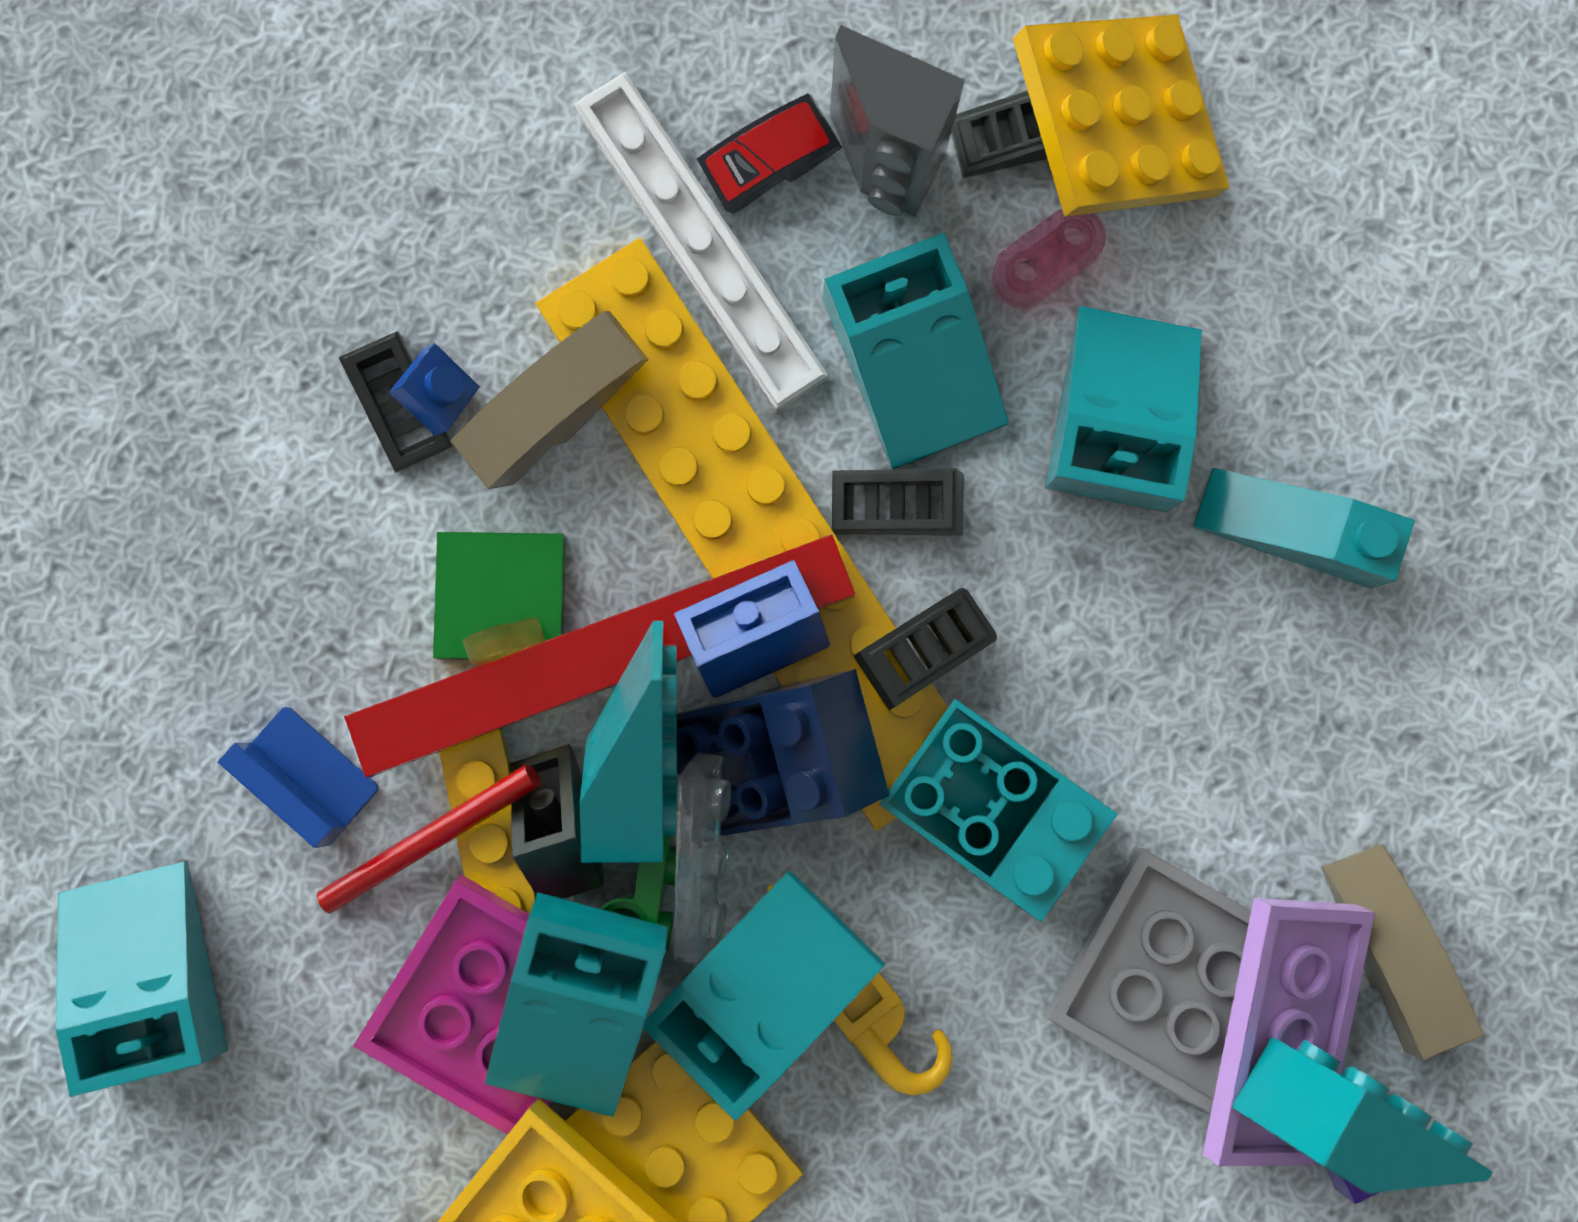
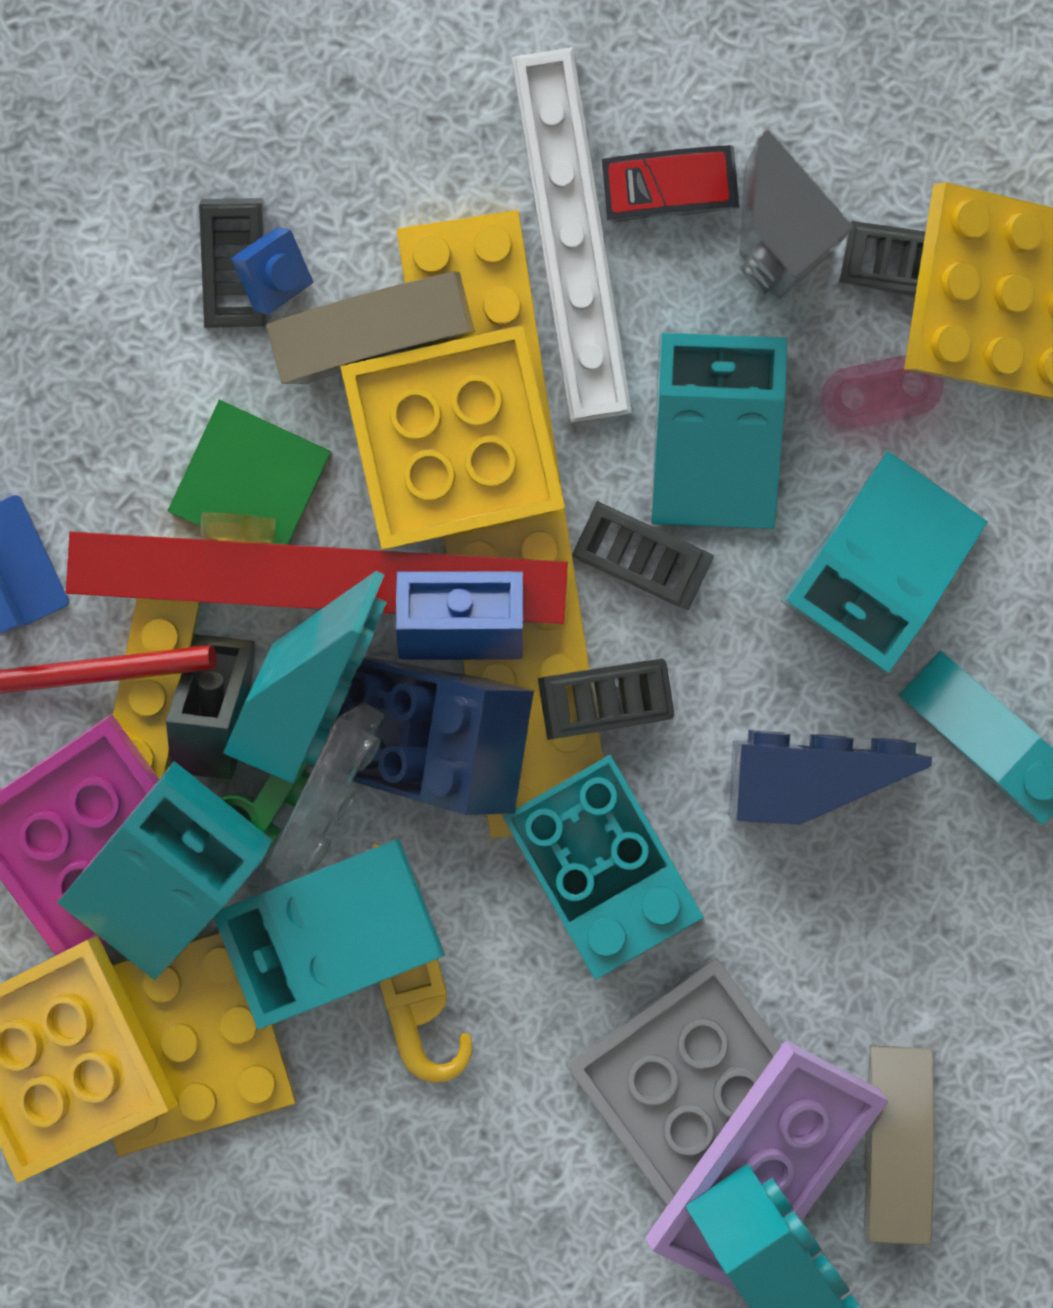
camera: 30 degrees right, 5 degrees up
(671, 466) = (452, 437): none -> yellow plate
(1147, 646) = (801, 782): none -> dark blue slope

